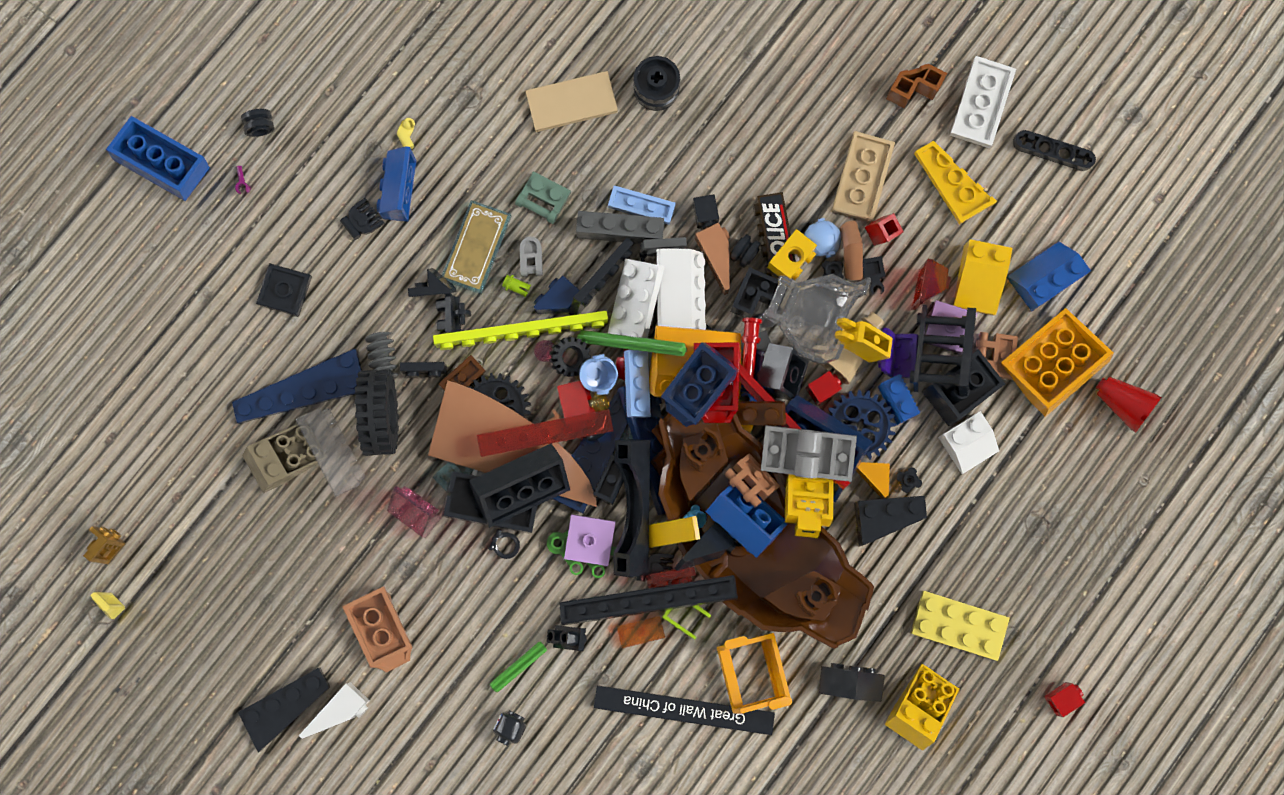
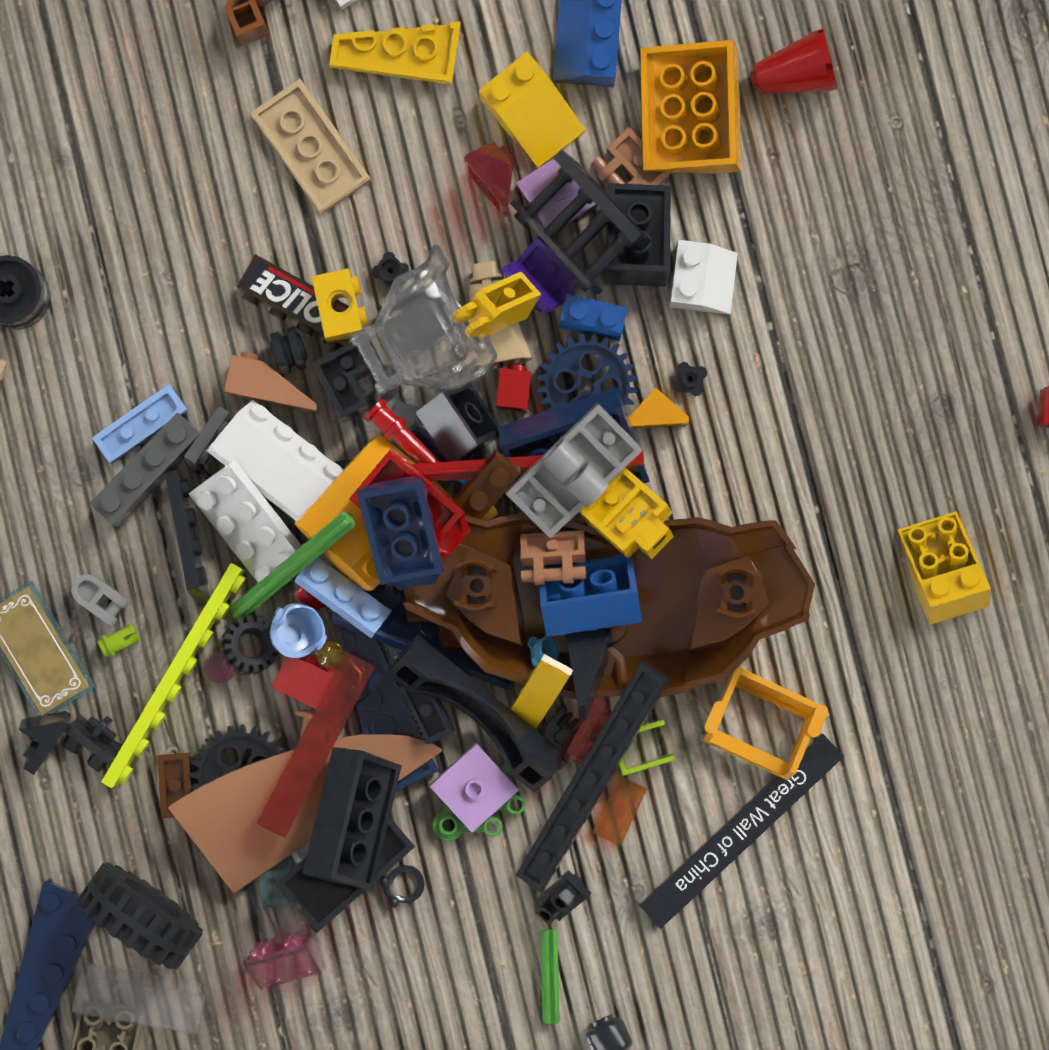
camera: 50 degrees left, 5 degrees up
(380, 351) = (73, 856): dark grey piece -> none
(413, 369) = (123, 833): black plate -> none
(545, 191) = (36, 519): sand green plate -> none
(558, 297) = (171, 606): dark blue slope -> none
(705, 211) = (207, 357): black brick -> none
(825, 236) = (343, 249): light blue cap -> none
(852, 250) = (384, 231): nougat brick -> none
(854, 684) = (858, 624): black brick -> none
(874, 269) = (427, 225): black plate -> none
(884, 229) = (390, 175): red brick -> none
(885, 516) = (710, 438): black wedge -> none
(960, 625) = (890, 454): light yellow plate -> none

